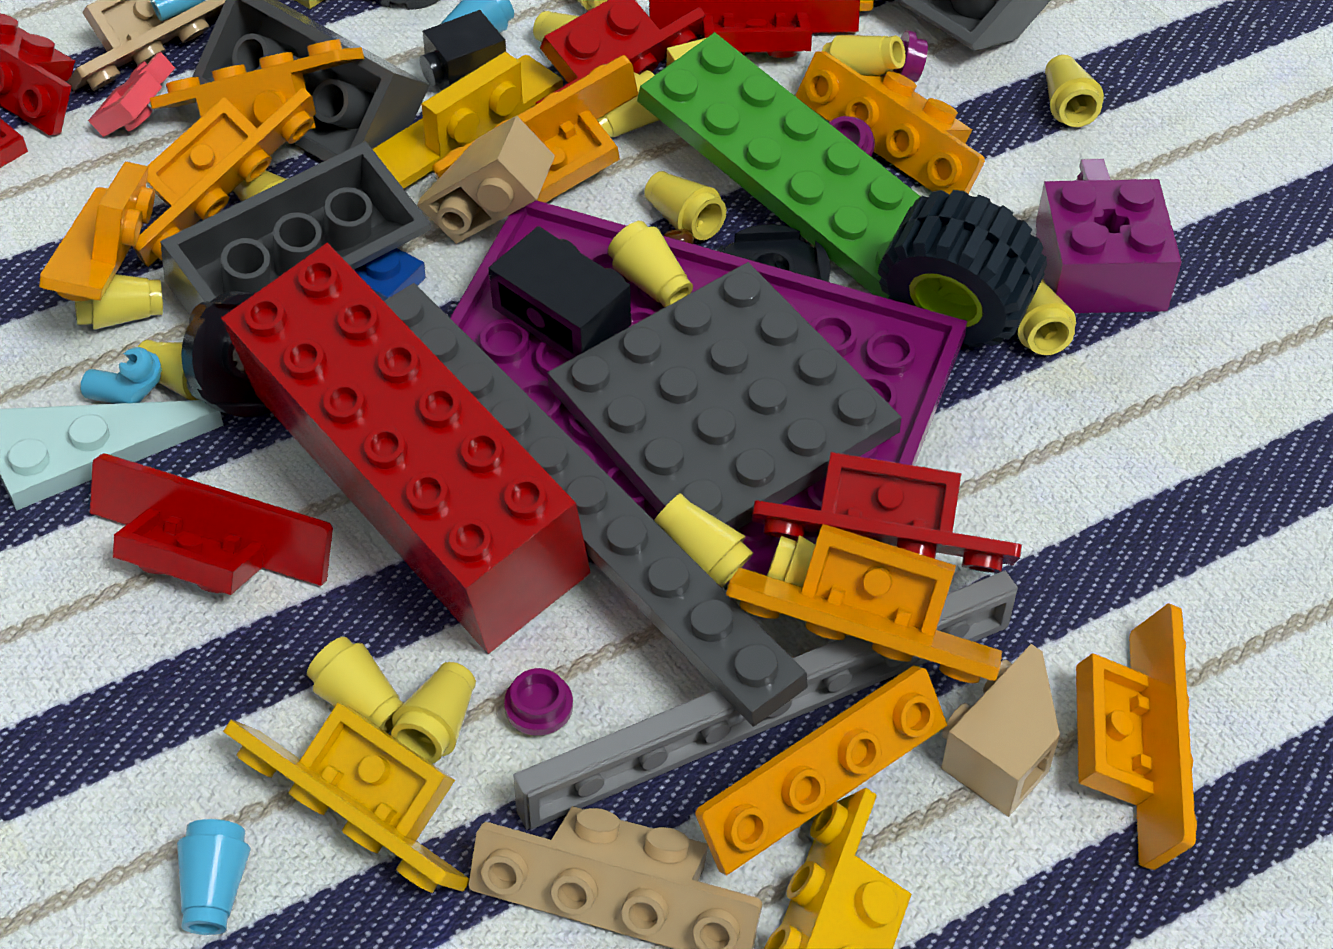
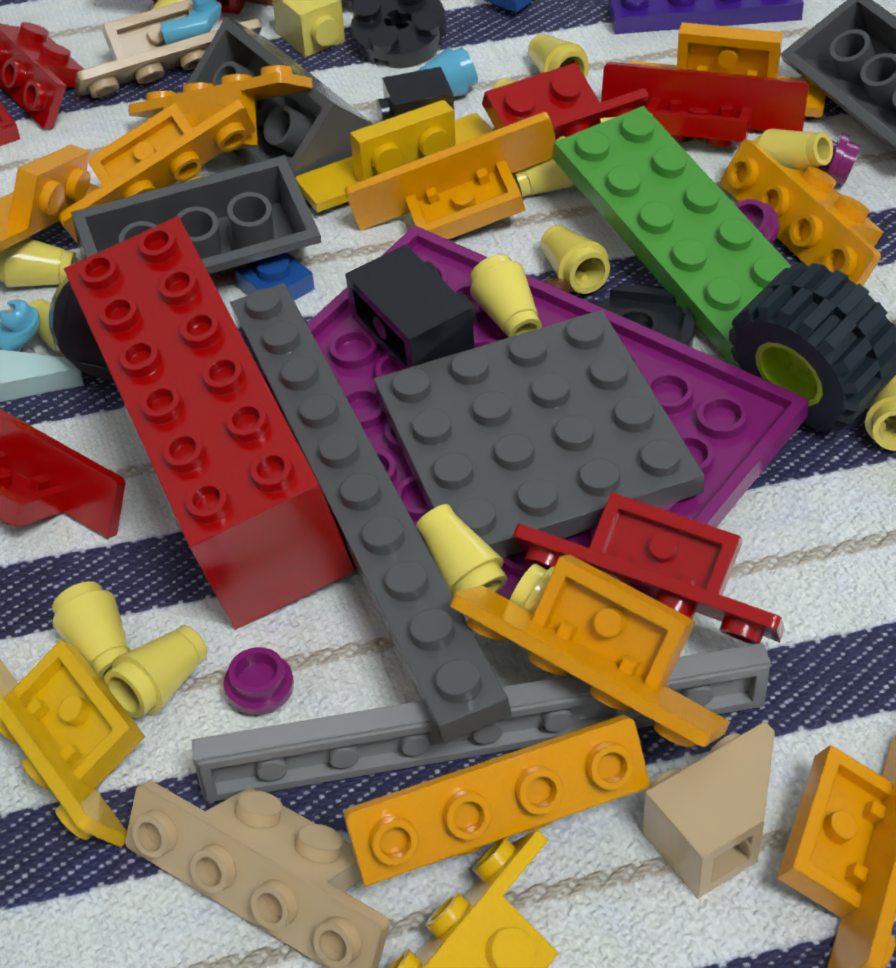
camera: 20 degrees right, 5 degrees down
(129, 102) = (113, 109): coral plate -> none
(488, 181) = (388, 207): tan slope -> none

